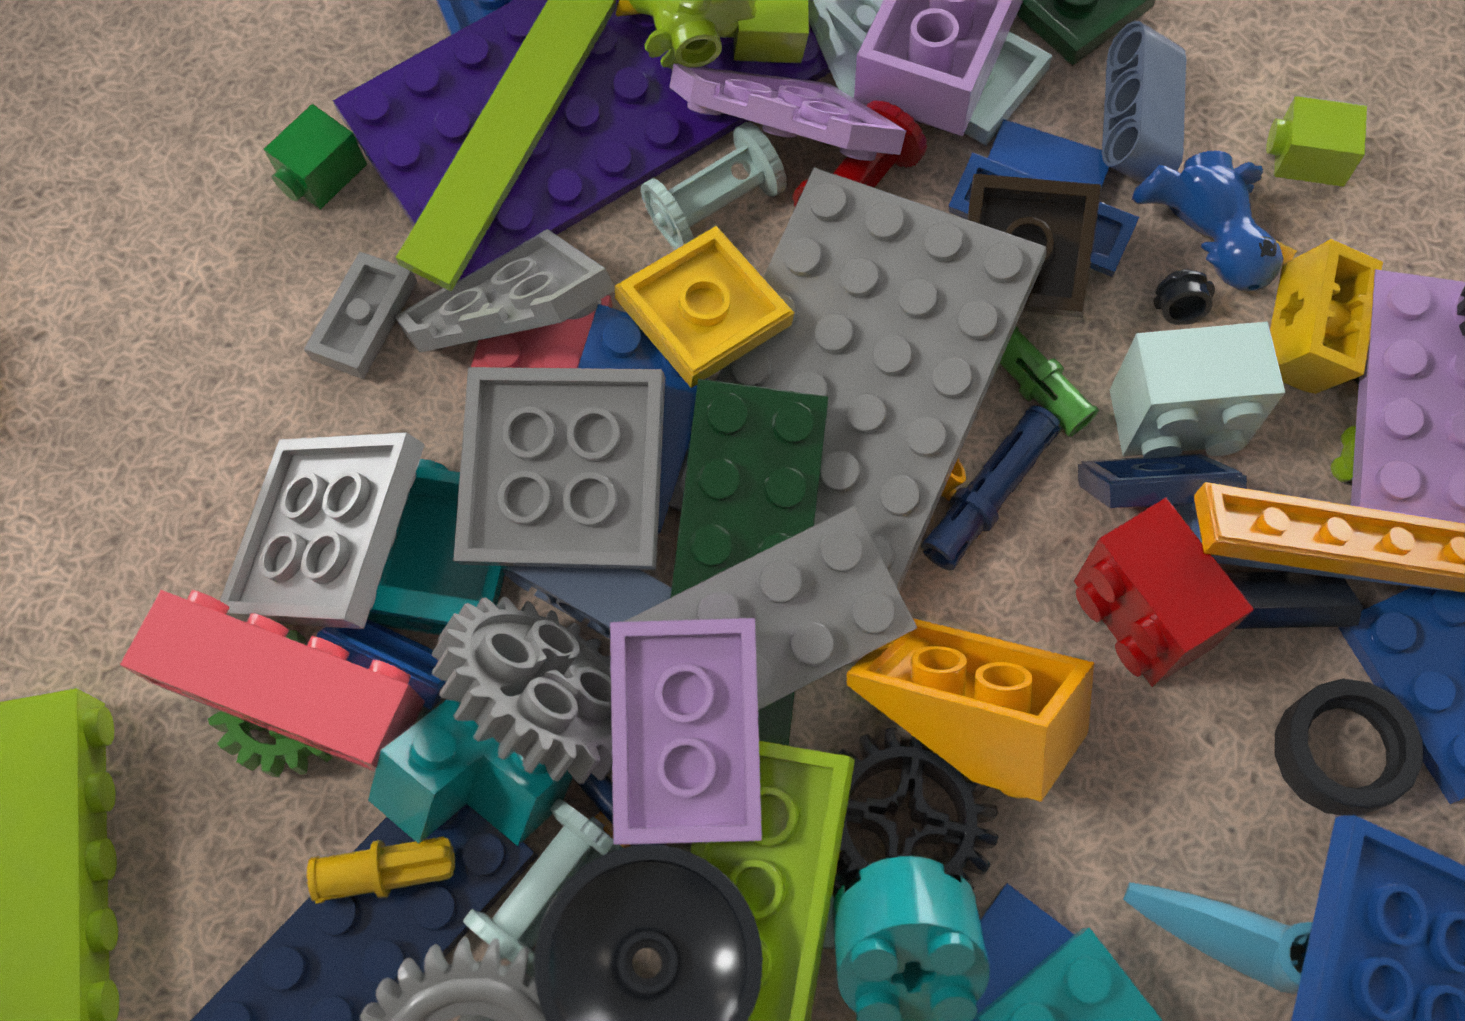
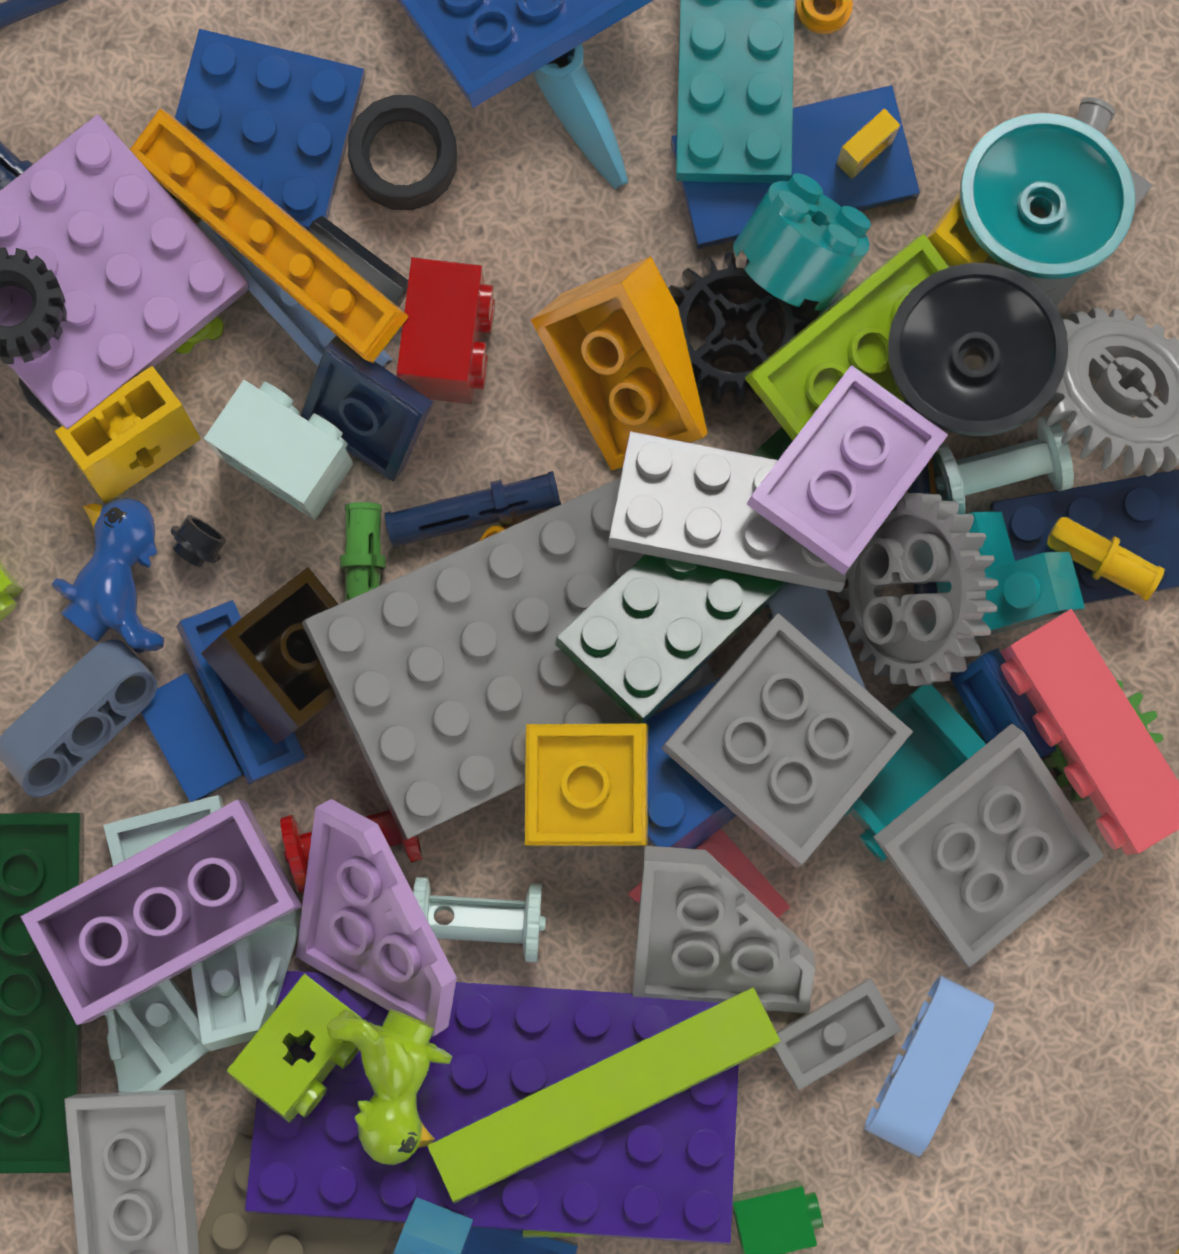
camera: 150 degrees left, 15 degrees up
(261, 345) = (931, 1068): none -> light blue beam

